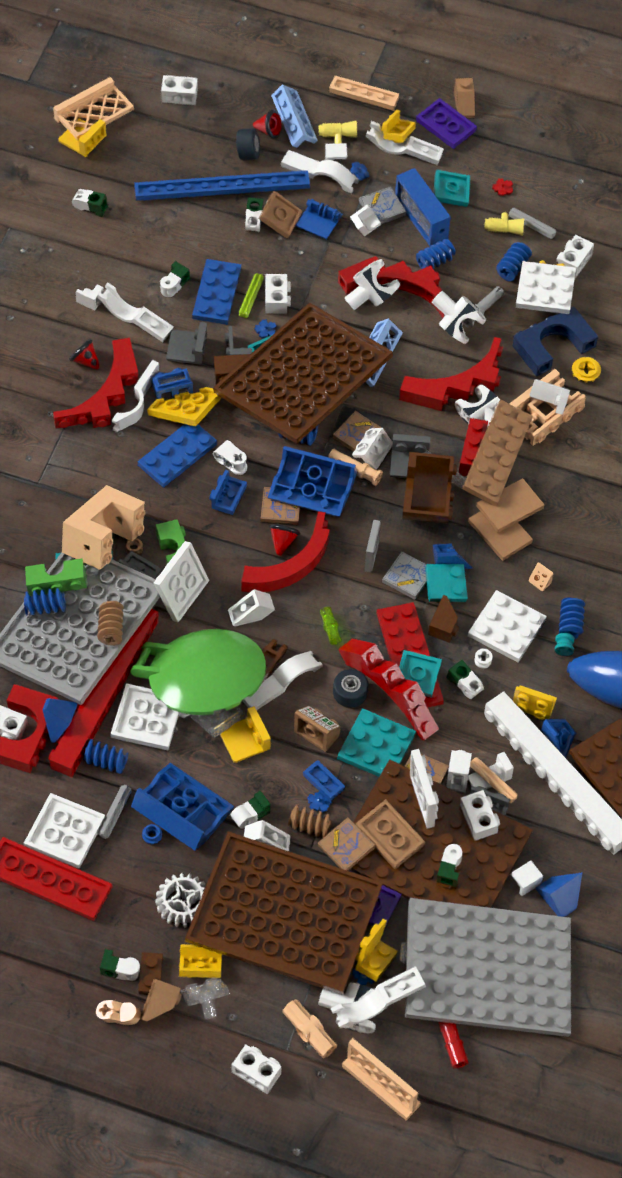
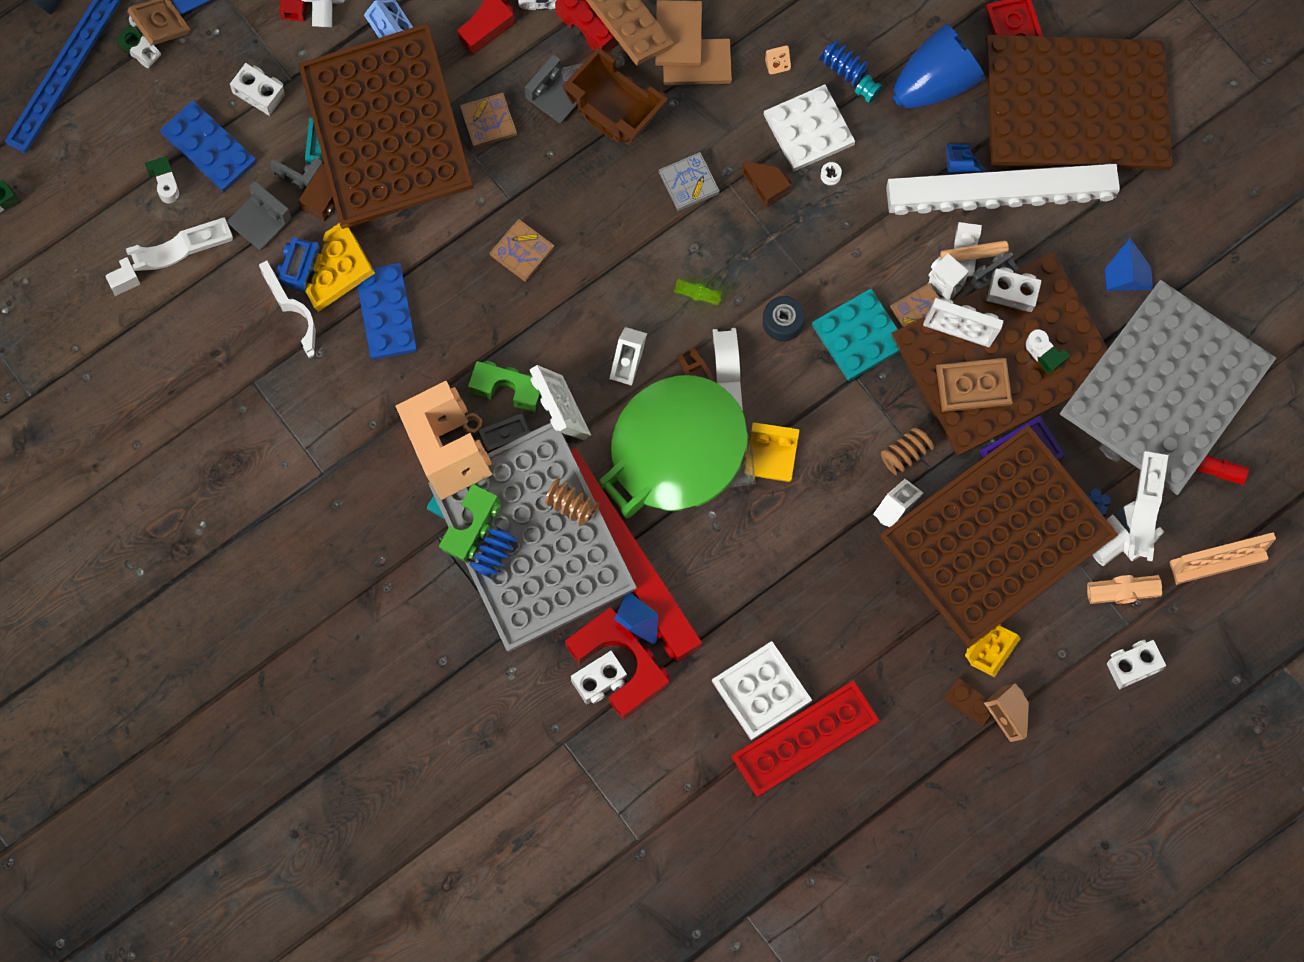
camera: 55 degrees left, 15 degrees up
(86, 355) = (196, 328): hat -> none
(96, 408) = (247, 302): red arch -> none
(105, 757) = (706, 600): blue piece -> none
(114, 811) = (770, 629): light grey axle -> none
(118, 1012) = (1003, 748): light nougat piece -> none
(119, 968) = (948, 728): leg -> none
(144, 719) = (684, 537): white plate -> none
(152, 829) = (819, 601): blue plate -> none
(169, 907) = (905, 622): white gear -> none
(182, 806) = (808, 560): blue piece -> none
(205, 994) = (1032, 663): clear plate -> none
(227, 493) = (475, 292): blue bracket -> none
(231, 458) = (429, 261): white piece -> none
(251, 295) = (239, 115): lime axle -> none
(251, 810) = (857, 498): leg -> none
(265, 329) = (291, 127): blue plant -> none
(282, 537) = (564, 272): red hat -> none
(292, 570) = (604, 315): red arch -> none
(313, 481) = (521, 203): blue piece -> none
(316, 727) = (808, 378): medium nougat slope -> none
(318, 802) = (886, 428): blue plant -> none
(323, 780) = (868, 409): blue plate -> none
(346, 845) = (958, 433): medium nougat tile -> none
(363, 470) = (537, 144): light nougat pin -> none
(372, 546) = (640, 193): light grey tile -> none
(373, 447) = (517, 117): white bracket -> none
(375, 954) = (1090, 479): yellow bracket -> none
(387, 675) = (807, 274): red arch -> none
(404, 632) = (782, 240): red plate -> none
(421, 669) = (814, 245): teal plate -> none
(447, 555) = (693, 132): blue slope -> none
(447, 581) = (724, 151): teal plate -> none
(465, 679) = (845, 206): leg -> none
(527, 877) = (1096, 289): white panel -> none
(534, 702) = (913, 158): yellow bracket -> none

